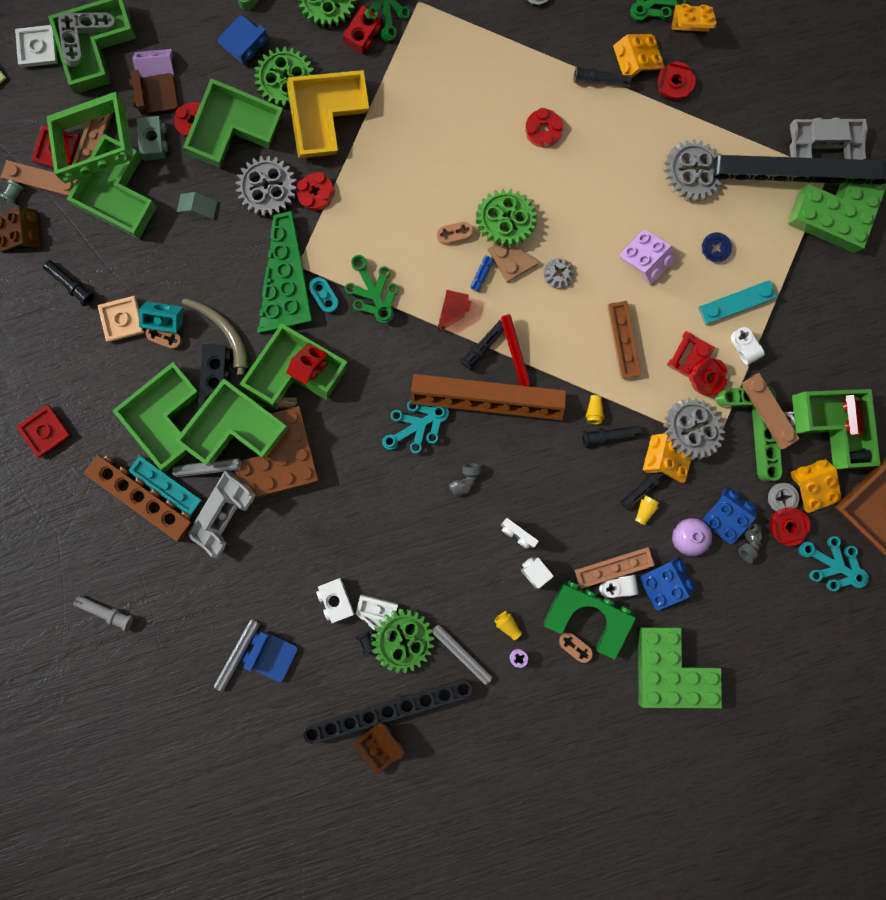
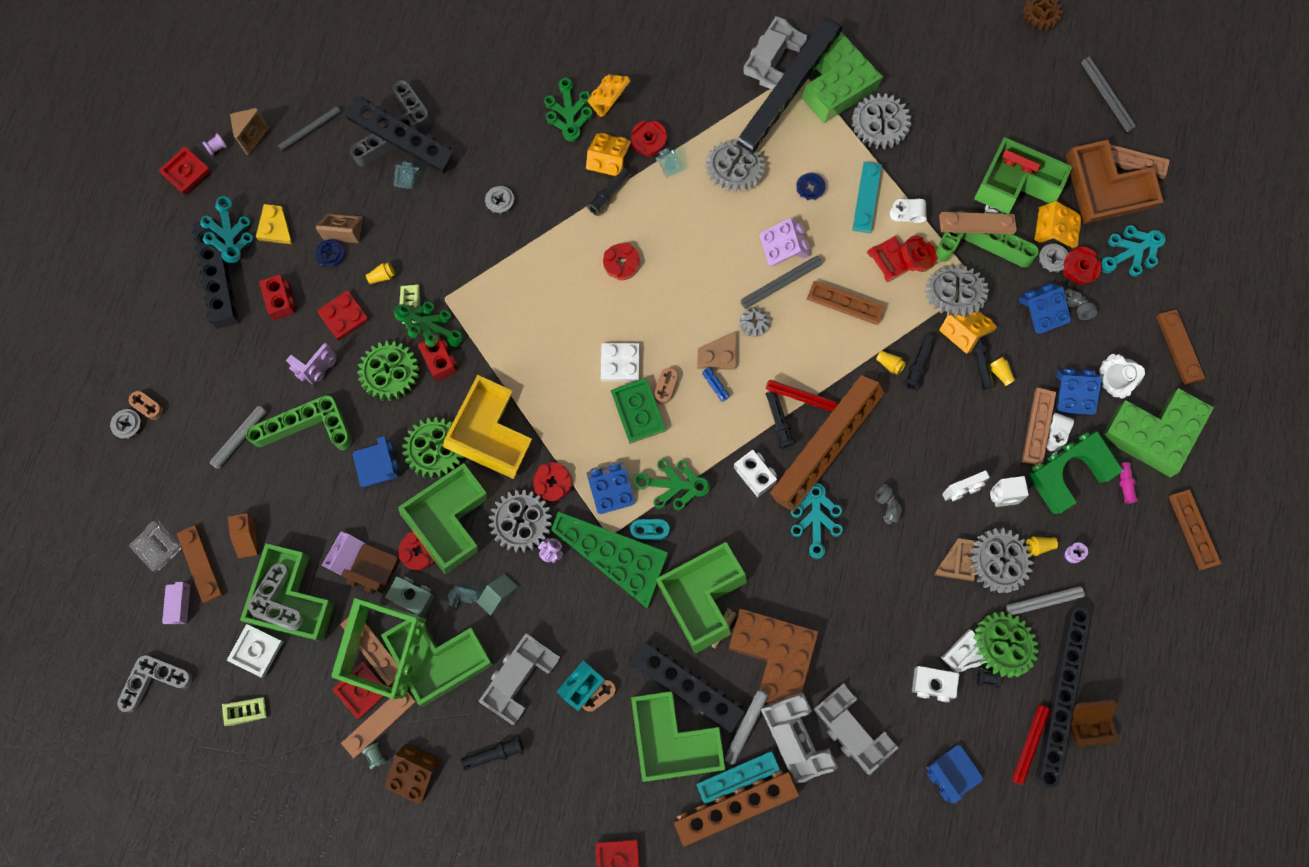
camera: 50 degrees left, 10 degrees down
(120, 319) = (557, 725): light nougat plate -> none
(137, 258) = (512, 676): none -> light grey bracket
(177, 176) = (465, 594): none -> clear light blue bracket
(230, 415) = (715, 672): bright green piece -> none
(236, 655) = (935, 806): light grey axle -> none
(238, 348) = (633, 632): dark tan animal -> none
(252, 554) = (849, 732): none -> light grey bracket
(256, 225) = (550, 550): none -> lavender gear
(307, 363) = (709, 575): red brick -> none
(333, 706) = (1031, 745): none -> red axle
(337, 240) = (610, 487): none -> blue bracket
(417, 223) = (638, 410): none -> green plate
(420, 351) = (751, 476): none -> white brick
(452, 182) = (620, 362): none -> white plate
(452, 565) = (957, 561): none -> medium nougat wing
(453, 308) = (732, 425): clear red slope -> none
(481, 613) = (1017, 562): none -> light grey gear
(520, 210) = (682, 350): bright green gear -> none
(578, 644) = (1093, 504): nougat beam -> none
(601, 748) = (1194, 530): none -> dark orange plate
(609, 670) = (1127, 483): none -> dark pink pin
(610, 274) = (781, 282): none -> dark grey axle
(661, 111) = (669, 162): none -> clear light blue bracket
(692, 537) = (1047, 348): lavender cylinder -> none
(703, 613) = (1120, 375): none -> white hair
(766, 652) = (1180, 347): none -> dark orange plate
(832, 287) = (864, 122): none -> light grey gear
(860, 456) = (1055, 175): black pin -> none

